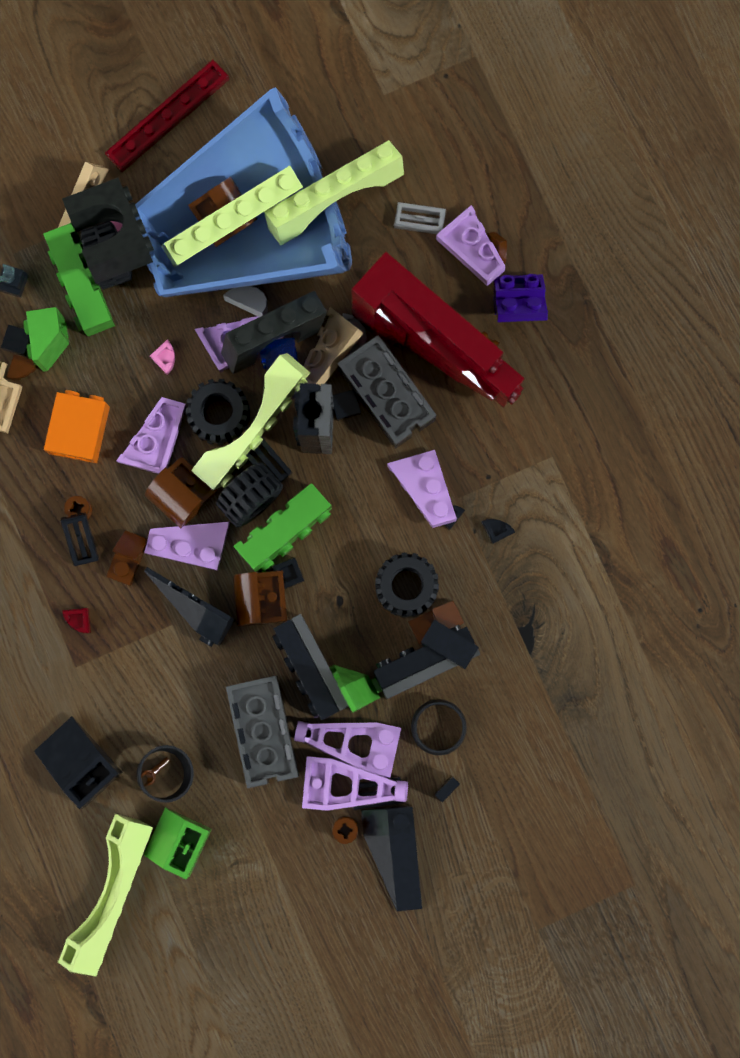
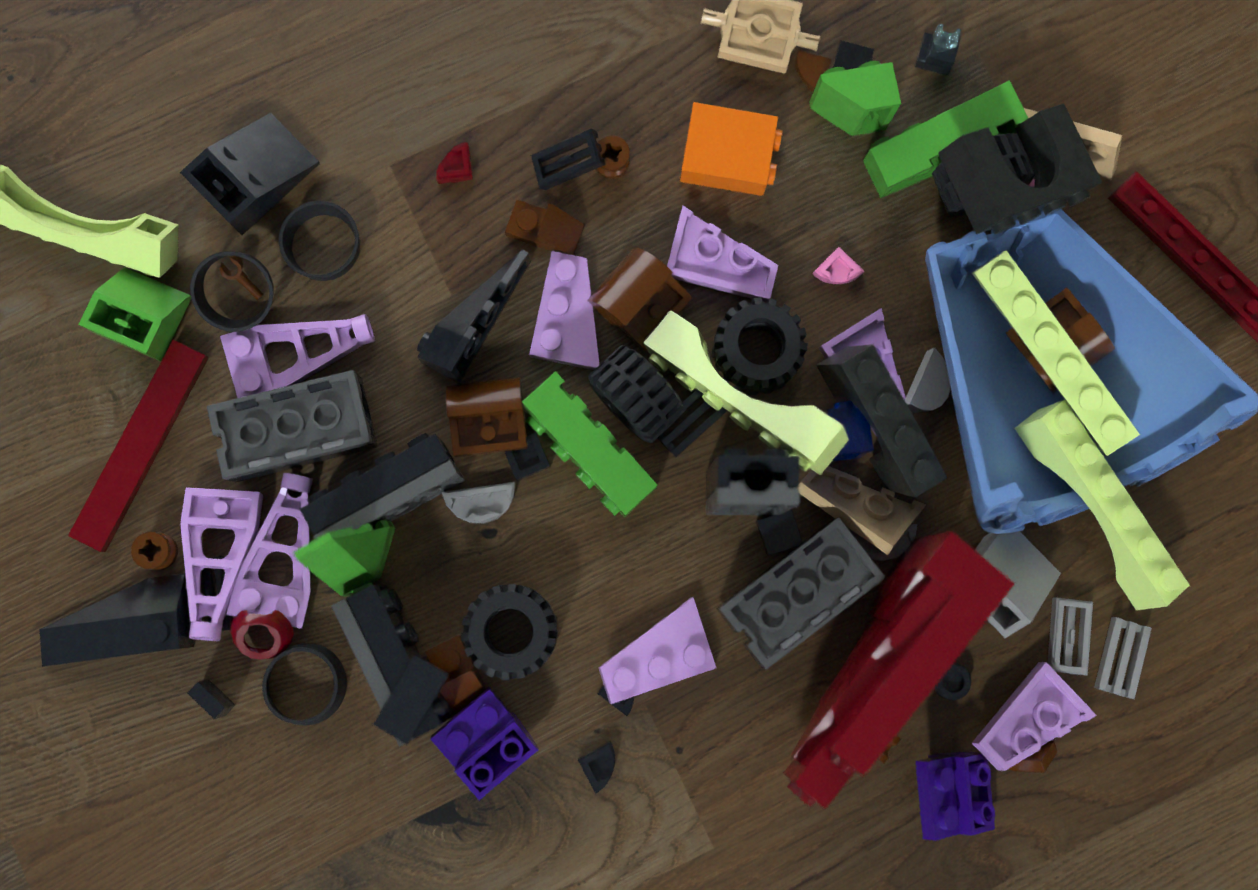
camera: 80 degrees right, 0 degrees up
(106, 714) = (301, 215): none -> black tyre
(216, 765) = (249, 360): none -> lavender plate
(271, 843) = (138, 446): none -> dark red tile
(319, 606) = (480, 503): none -> light grey tile
(375, 243) = (1028, 569): none -> light grey brick
(397, 765) = (277, 625): none -> dark red piece
(438, 177) = (1136, 660): none -> light grey tile
(448, 294) = (954, 683): none -> black tile
(480, 603) = (484, 743): none -> dark purple brick

